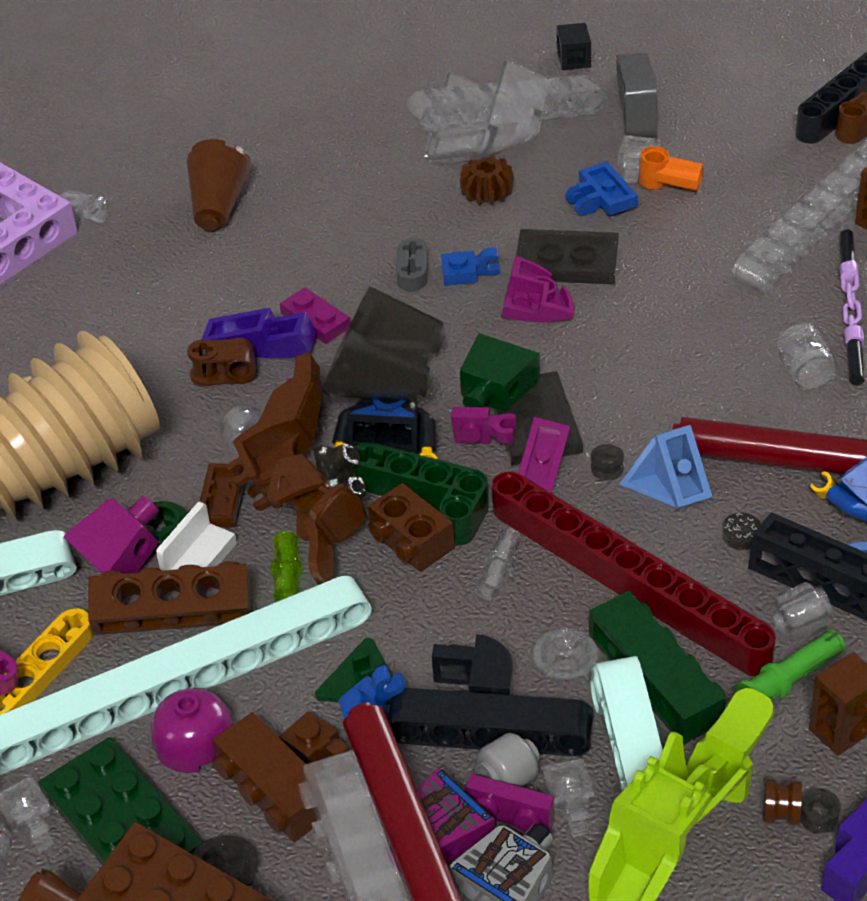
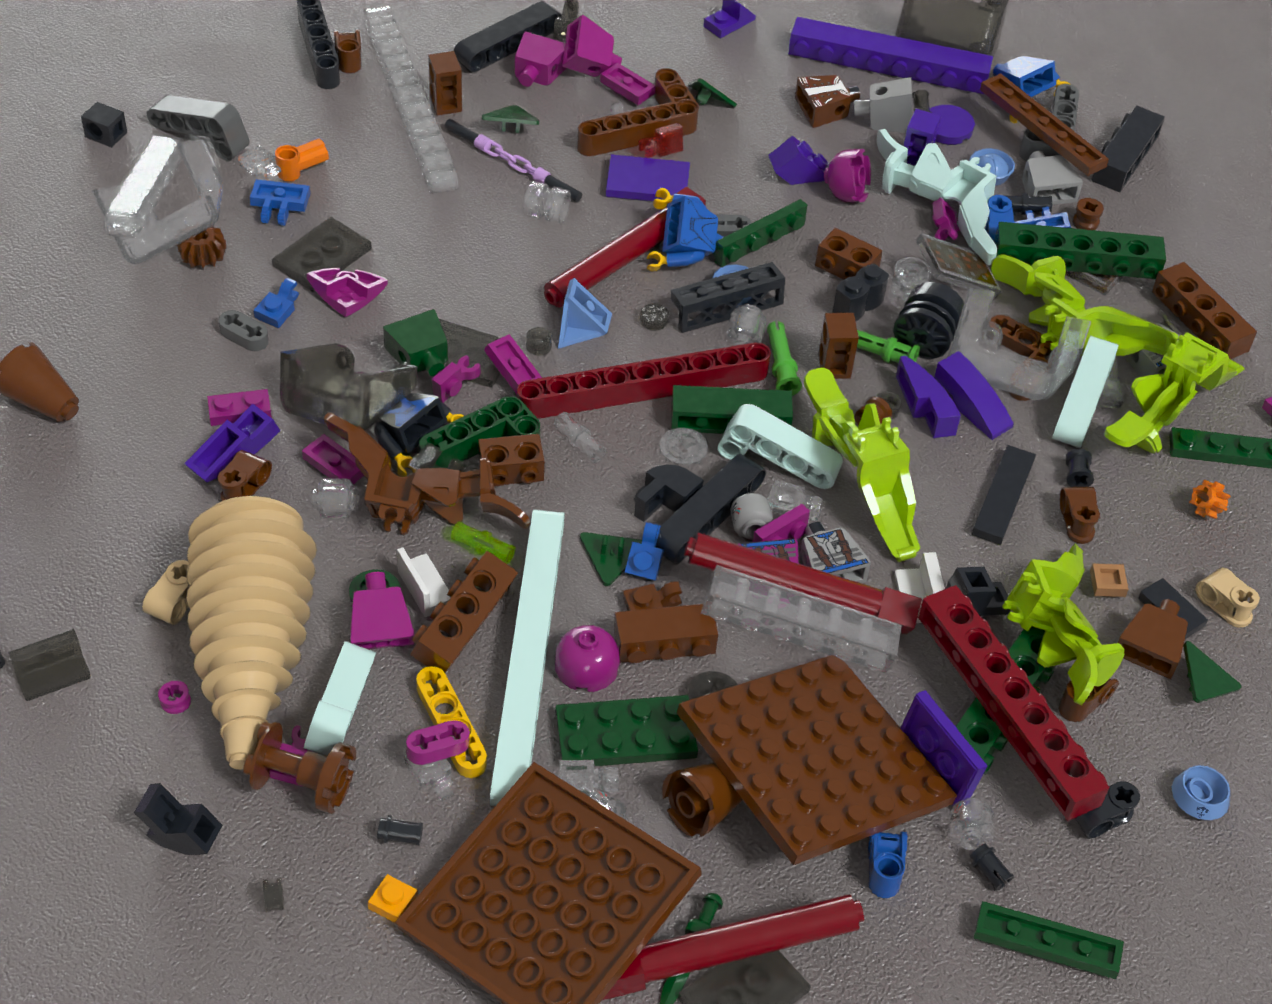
camera: 65 degrees left, 5 degrees up
(221, 495) = (378, 542): reddish brown plate -> none

